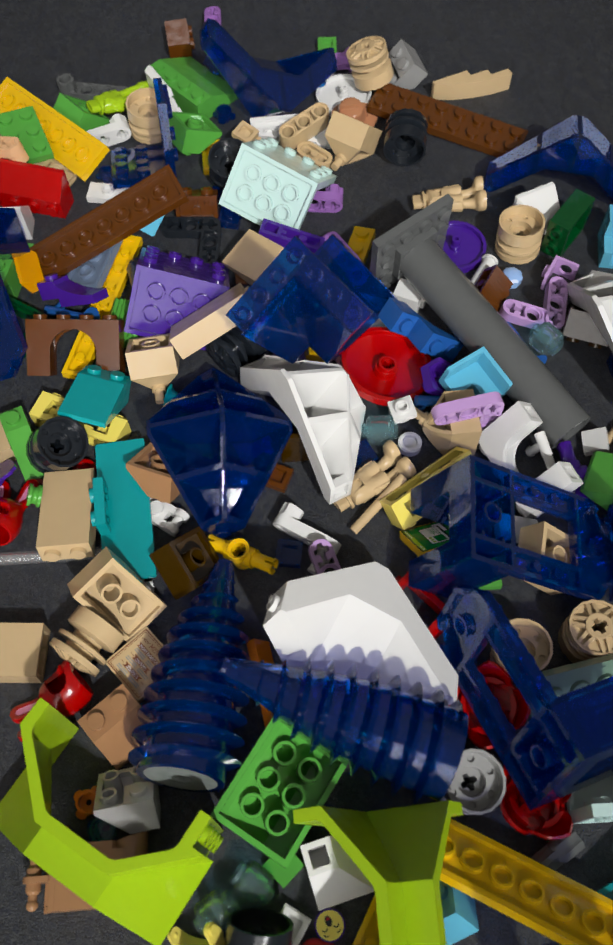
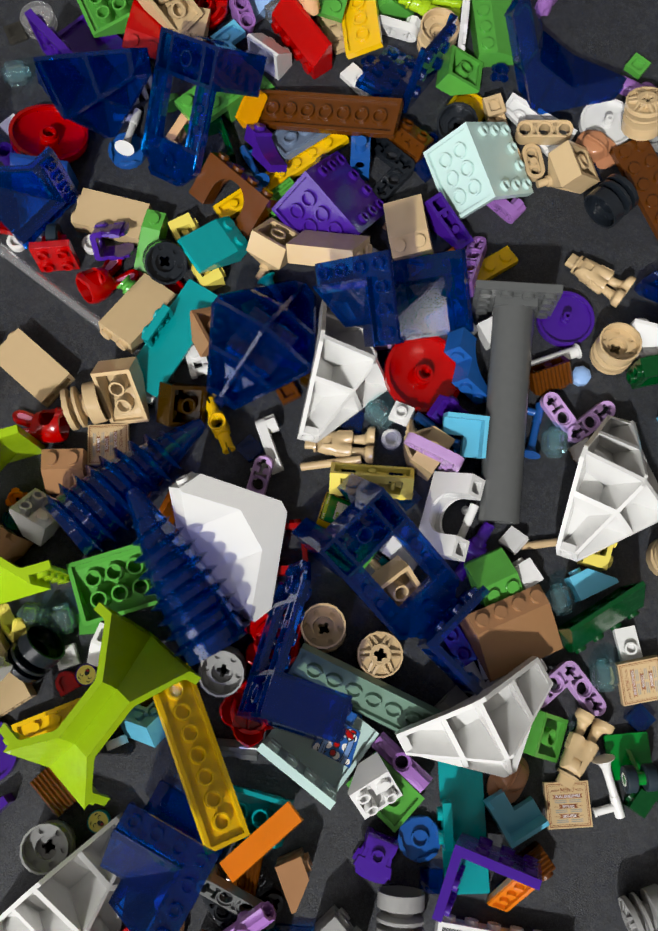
camera: 40 degrees right, 15 degrees up
(164, 236) = (361, 153): none -> blue torso
(555, 267) = (621, 393): lavender bracket -> none

